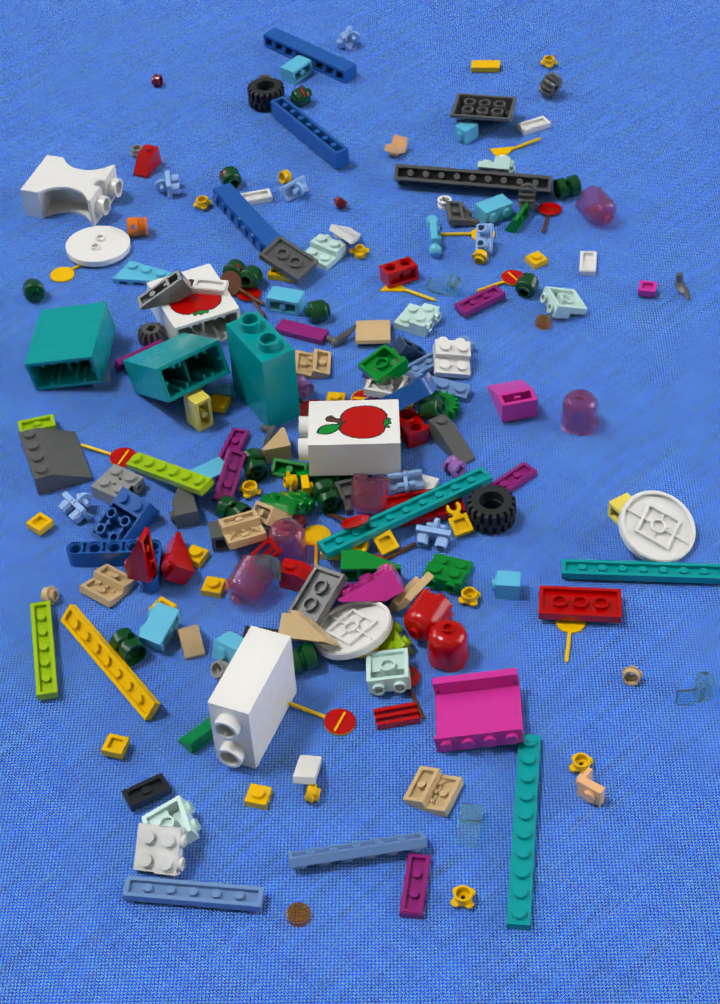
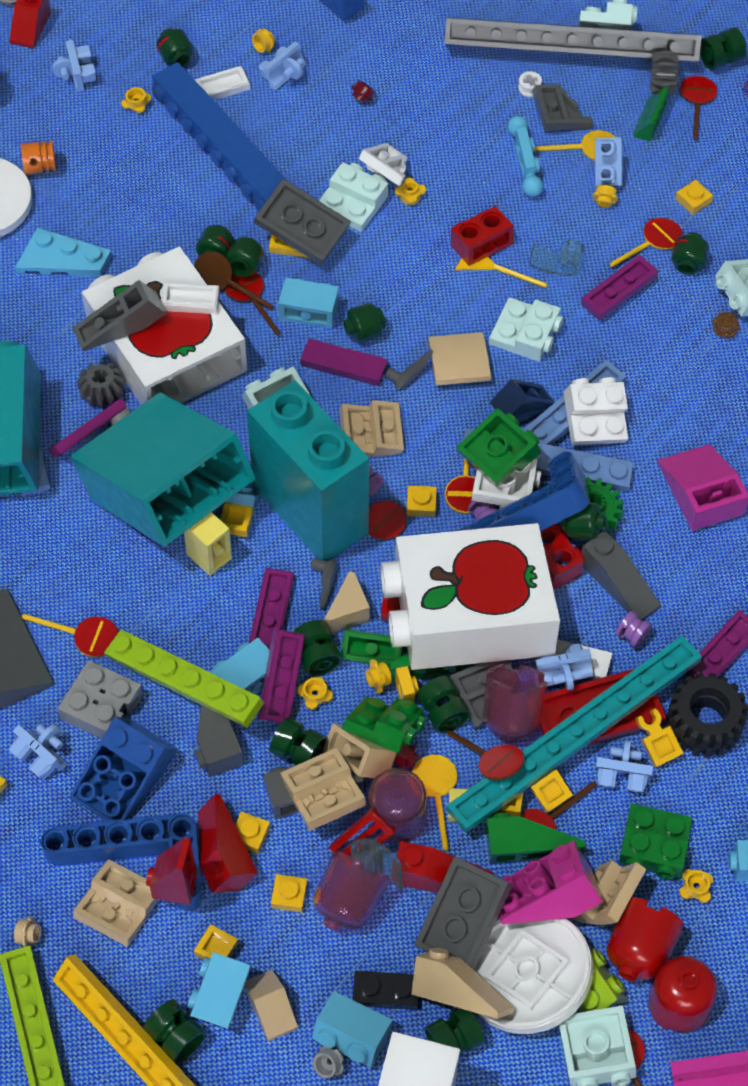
camera: 10 degrees left, 15 degrees up
(494, 209) = (613, 99): medium azure brick -> none

